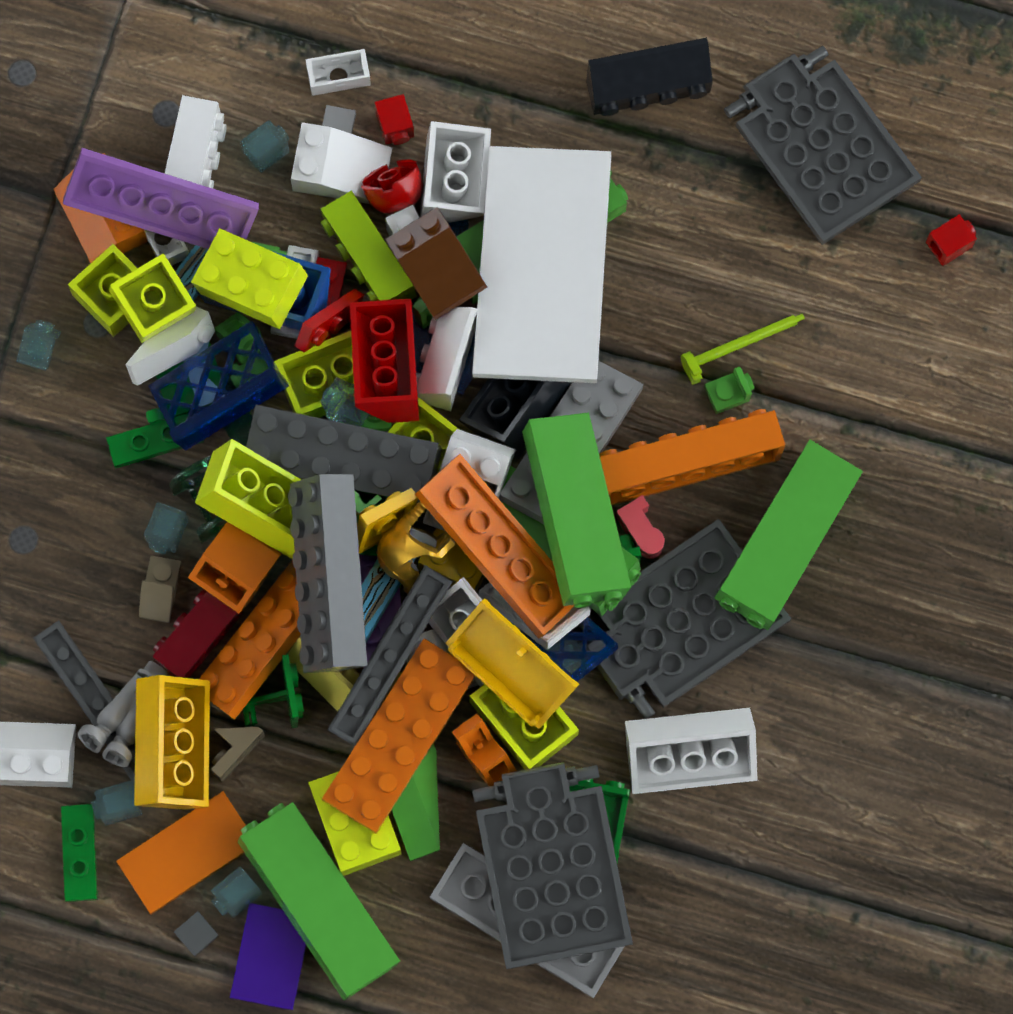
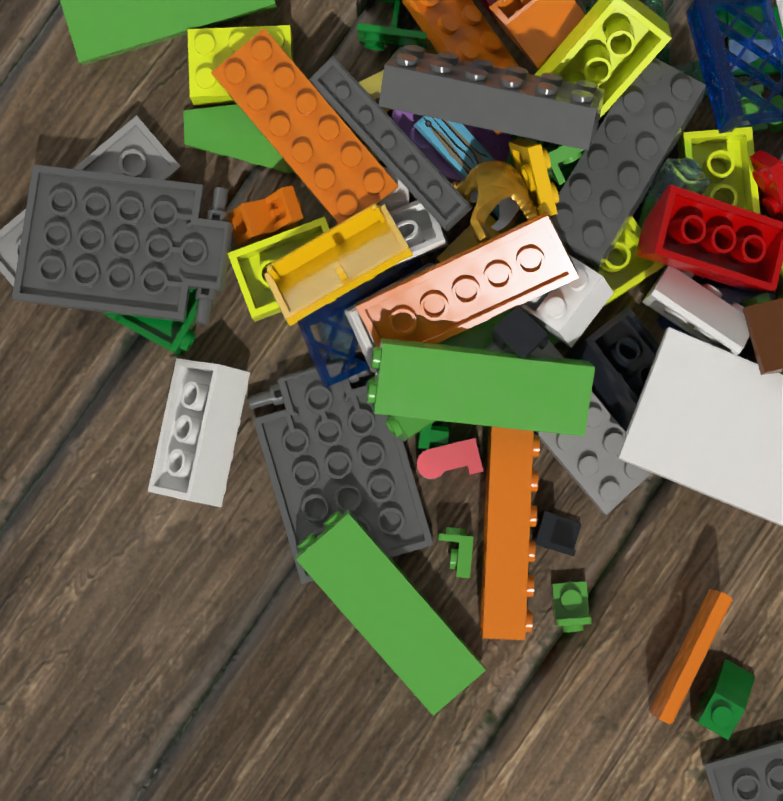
camera: 110 degrees right, 10 degrees up
(522, 489) = (519, 333): none -> black panel
(673, 418) = (557, 533): none -> black panel
(692, 364) = (613, 575): lime piece -> none
(721, 491) = (461, 557): none -> bright green bracket
(738, 278) = (690, 656): none -> orange tile
(763, 241) = (725, 699): none -> green slope

